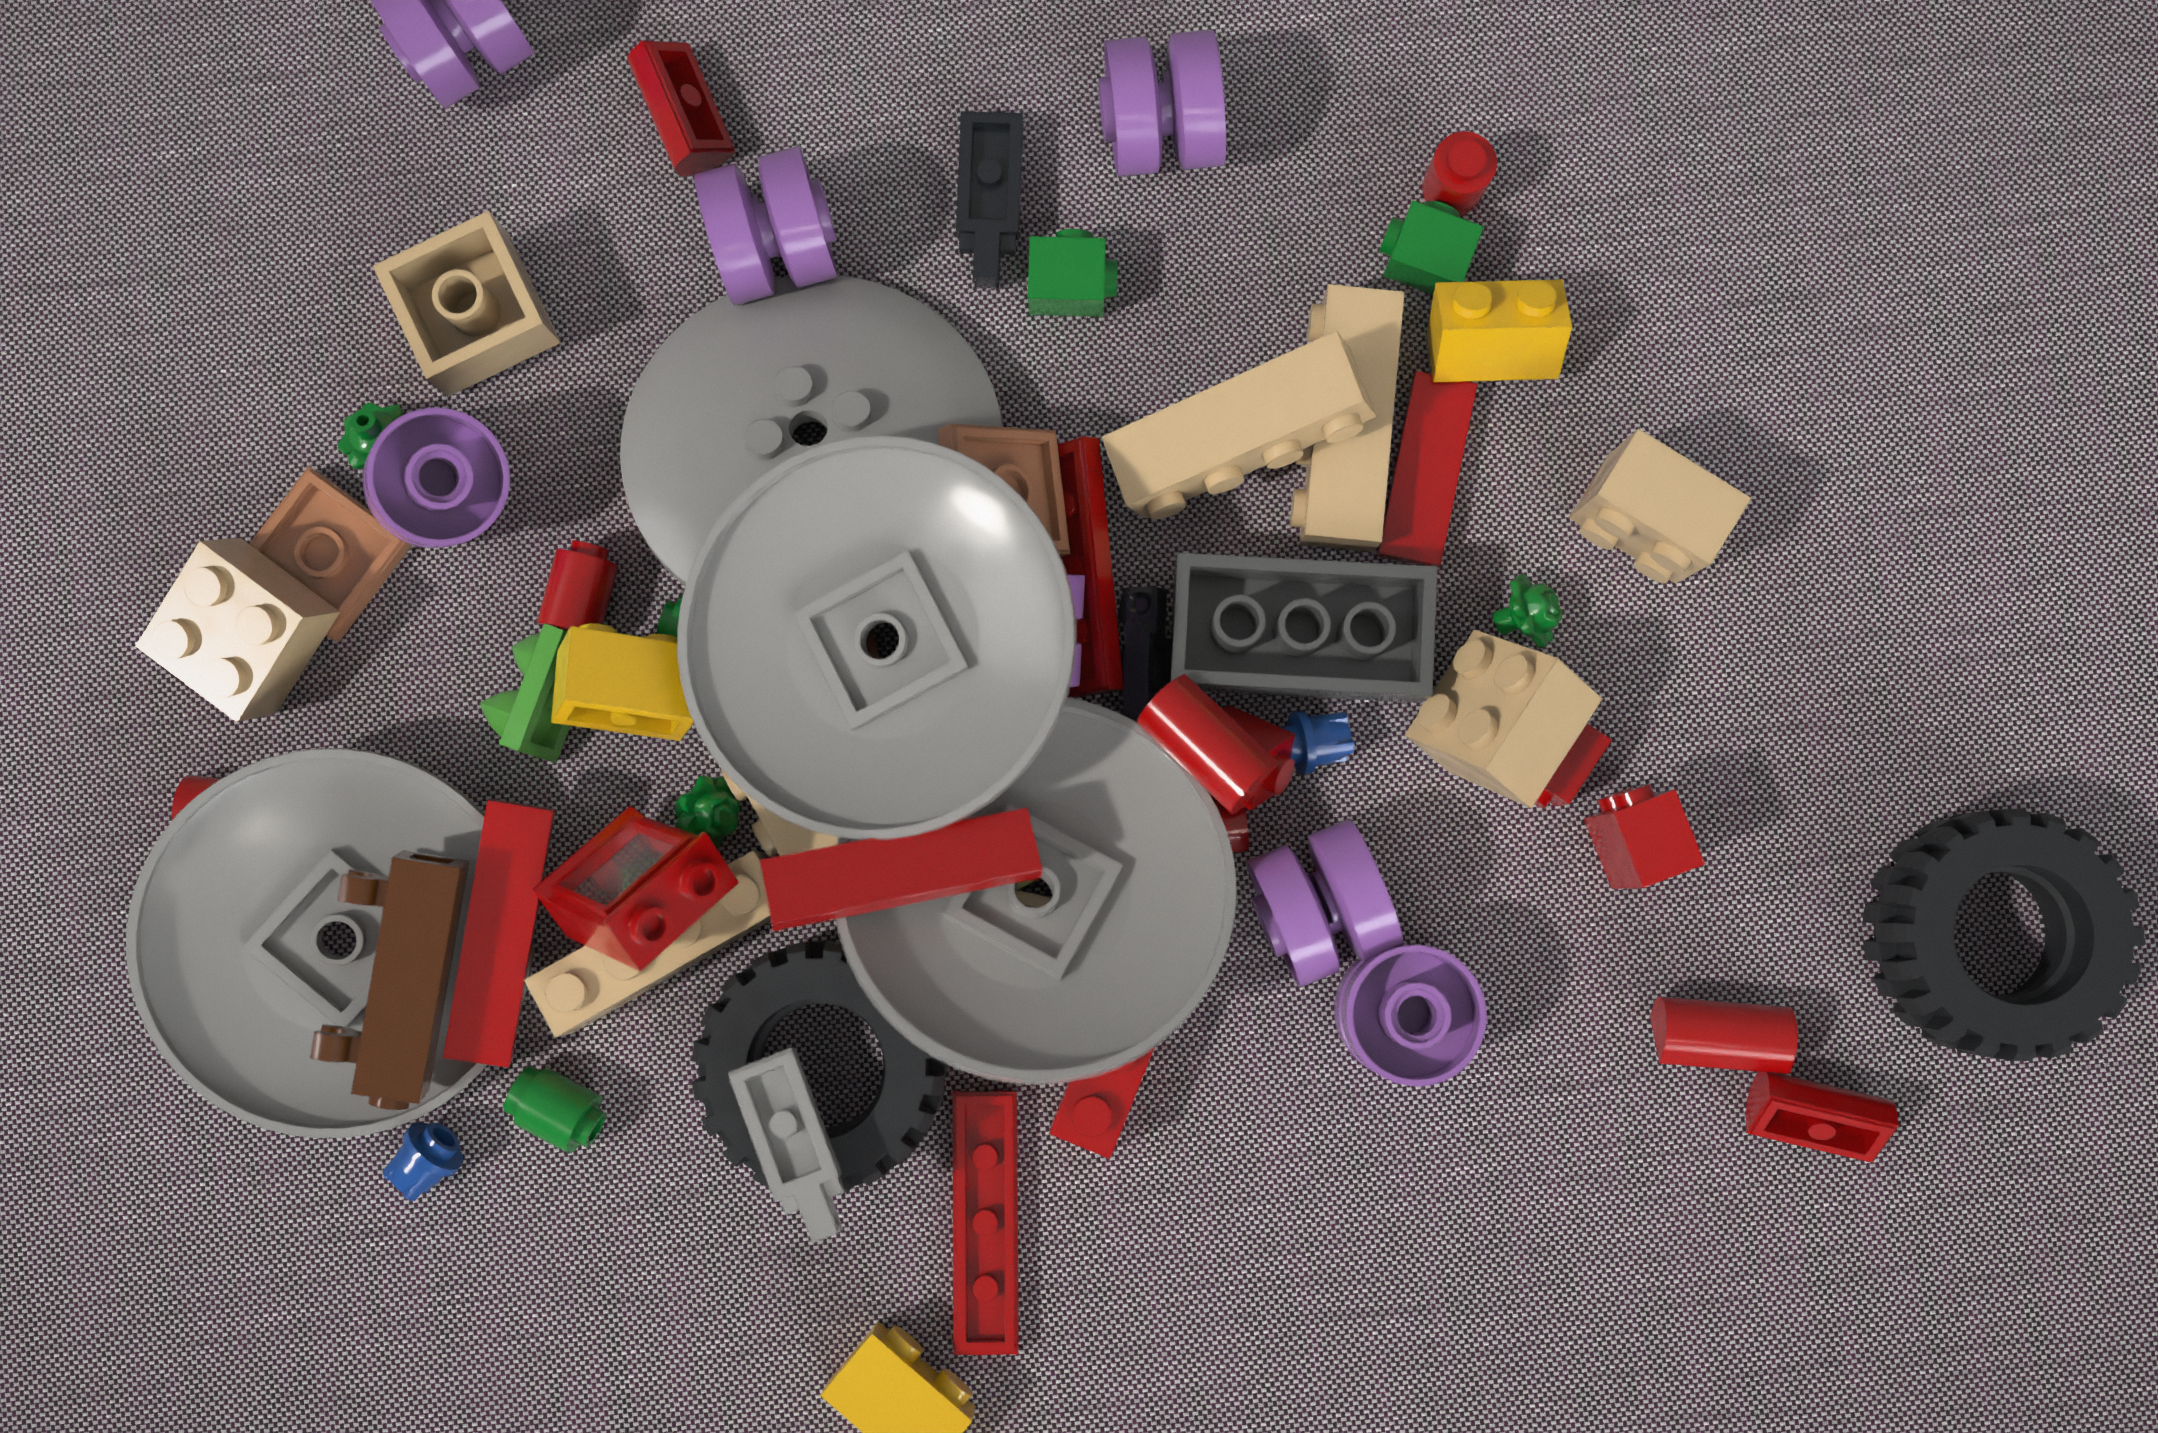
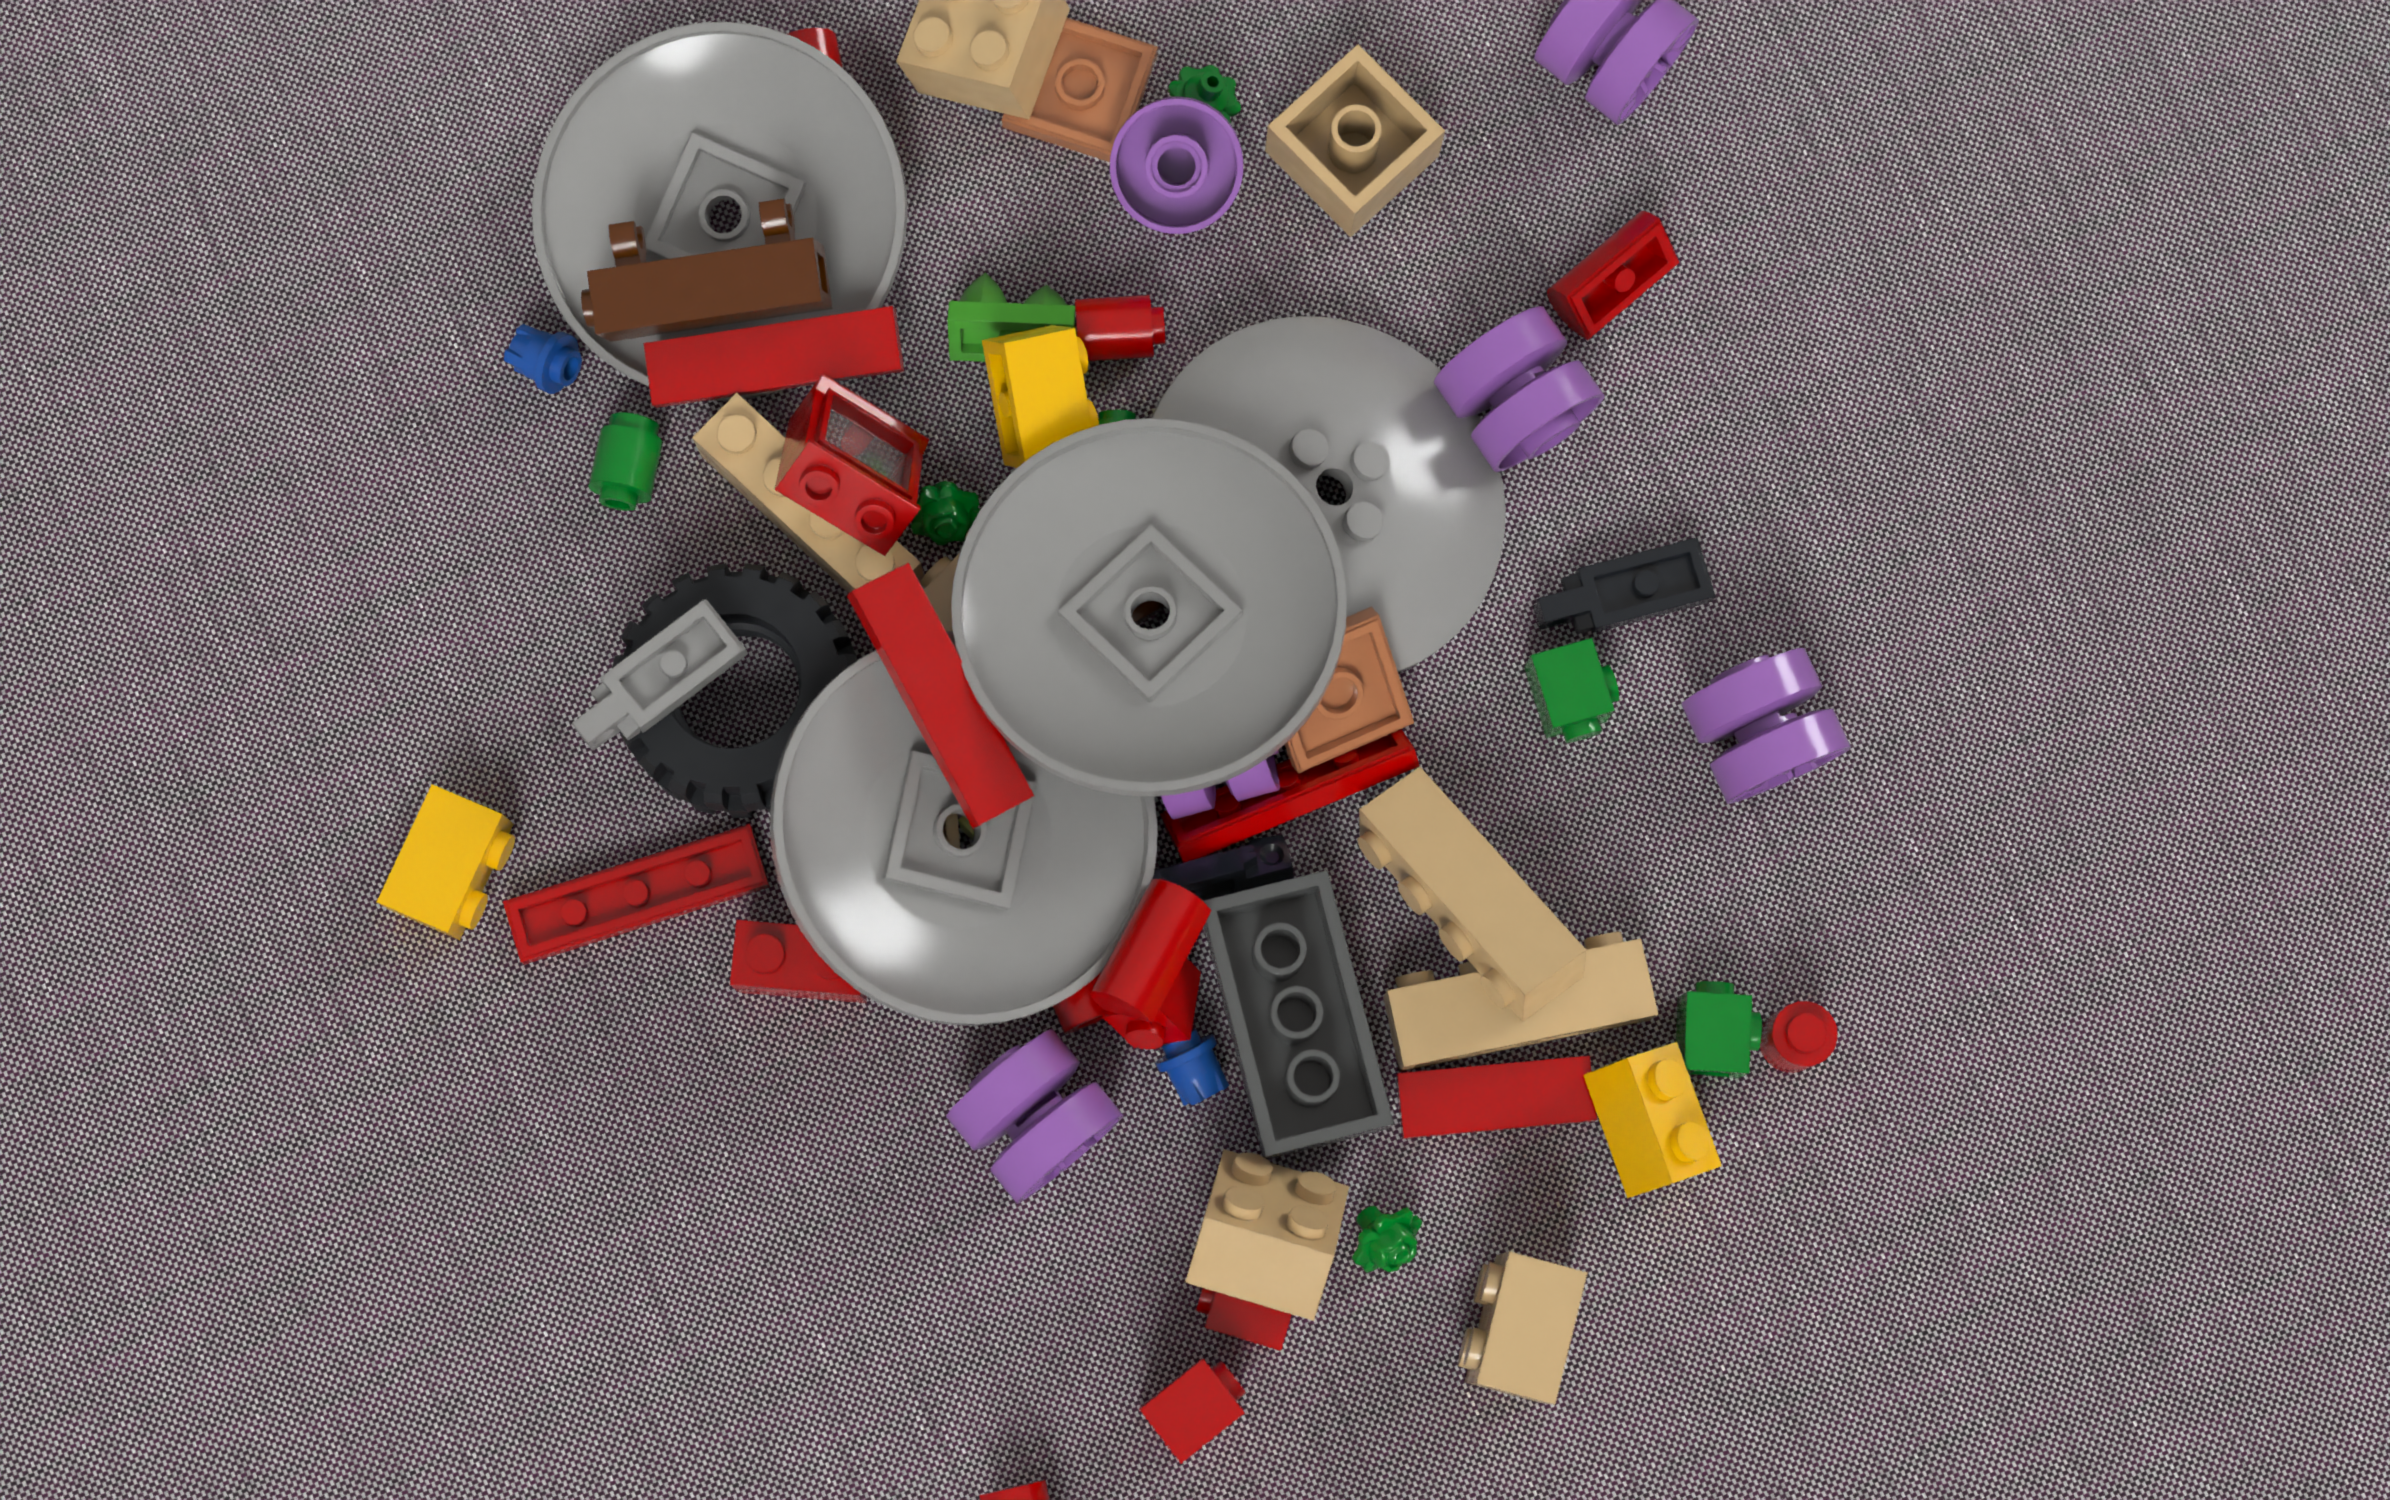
camera: 65 degrees right, 5 degrees down
(1411, 1014) = (953, 1231): medium lavender wheel -> none

